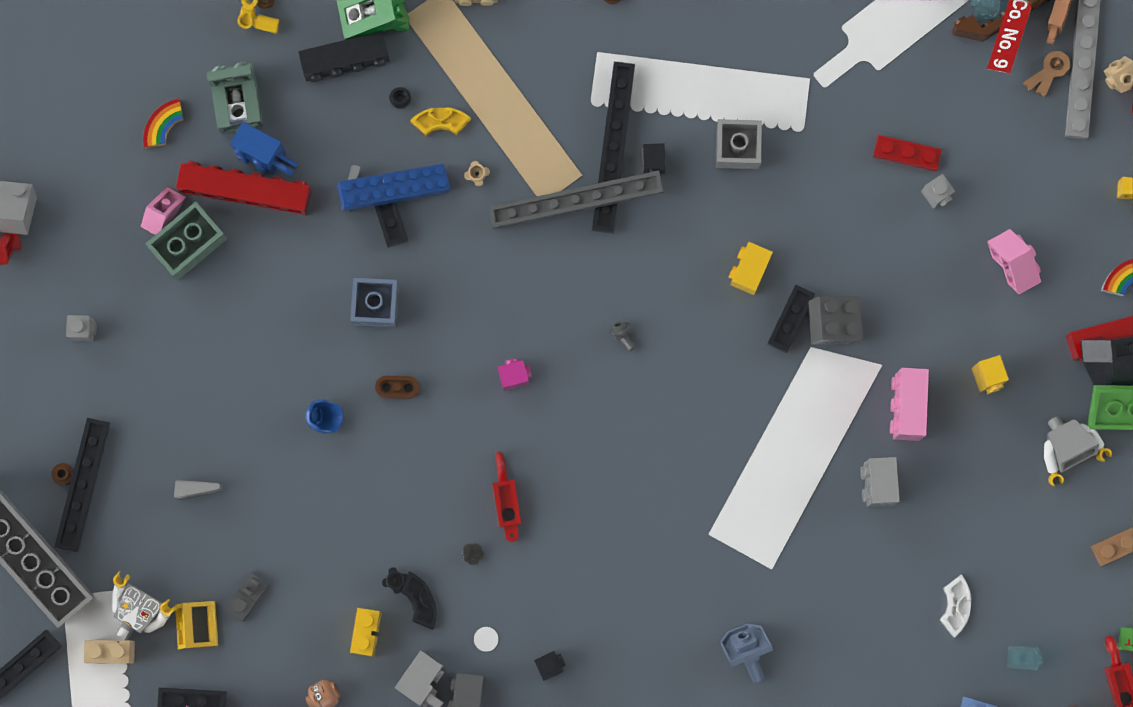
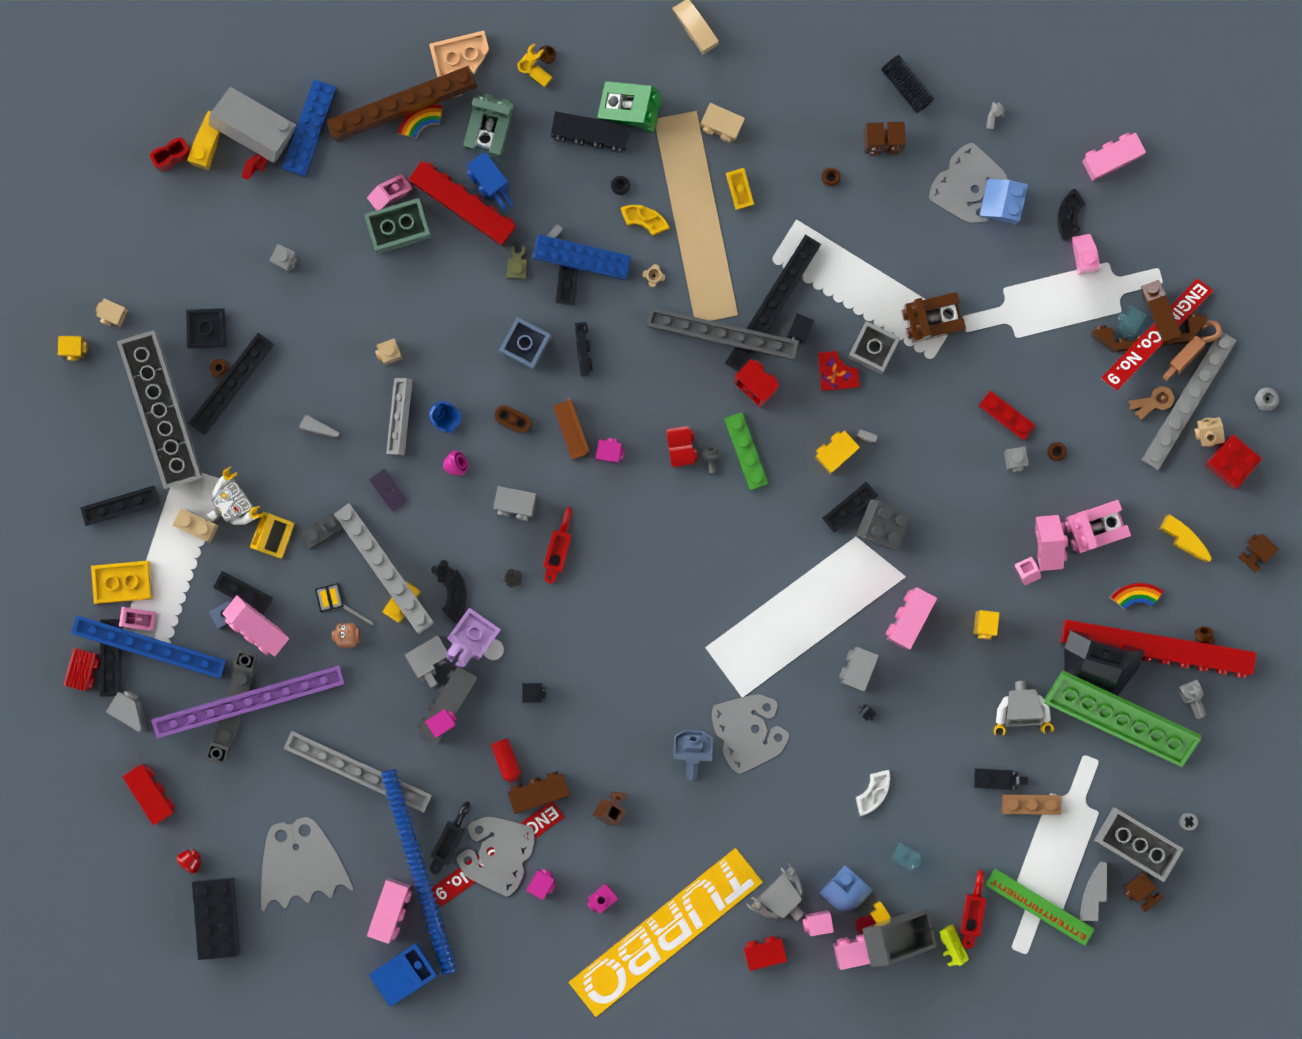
camera: 20 degrees right, 5 degrees up
(30, 438) = (206, 328): none -> black plate
(49, 183) = (309, 128): none -> blue piece
(135, 114) = (402, 103): none -> reddish brown brick
(175, 47) = (459, 52): none -> light nougat plate
(235, 376) = (388, 352): none -> tan brick
(276, 438) = (399, 416): none -> light grey plate
(288, 664) = (330, 598): none -> piece
(298, 520) = (388, 490): none -> clear purple slope
(330, 227) = (517, 266): none -> olive plate
(332, 605) = (384, 568): none -> light grey plate
(358, 460) = (455, 463): none -> dark pink cone
(437, 281) = (583, 347): none -> black hinge
(439, 473) = (515, 502): none -> light grey brick
(457, 637) = (471, 638): none -> lavender plate
(464, 370) = (571, 429): none -> dark orange panel
(524, 45) = (739, 188): none -> yellow plate
(586, 336) = (681, 447): none -> red brick
(635, 233) = (756, 383): none -> red brick
(656, 310) = (746, 451): none -> bright green plate
(711, 189) = (835, 374): none -> red tile
(773, 97) = (917, 321): none -> reddish brown brick
(774, 238) = (867, 436): none -> light grey tile
(786, 611) = (738, 736): none -> light grey piece
(910, 524) = (866, 712): none -> black plate
(975, 160) = (1062, 449): none -> reddish brown plate
(1005, 301) = (1028, 571): none -> bright pink slope
(1043, 234) = (1082, 531): none -> bright pink brick
(1079, 531) = (998, 779): none -> black hinge

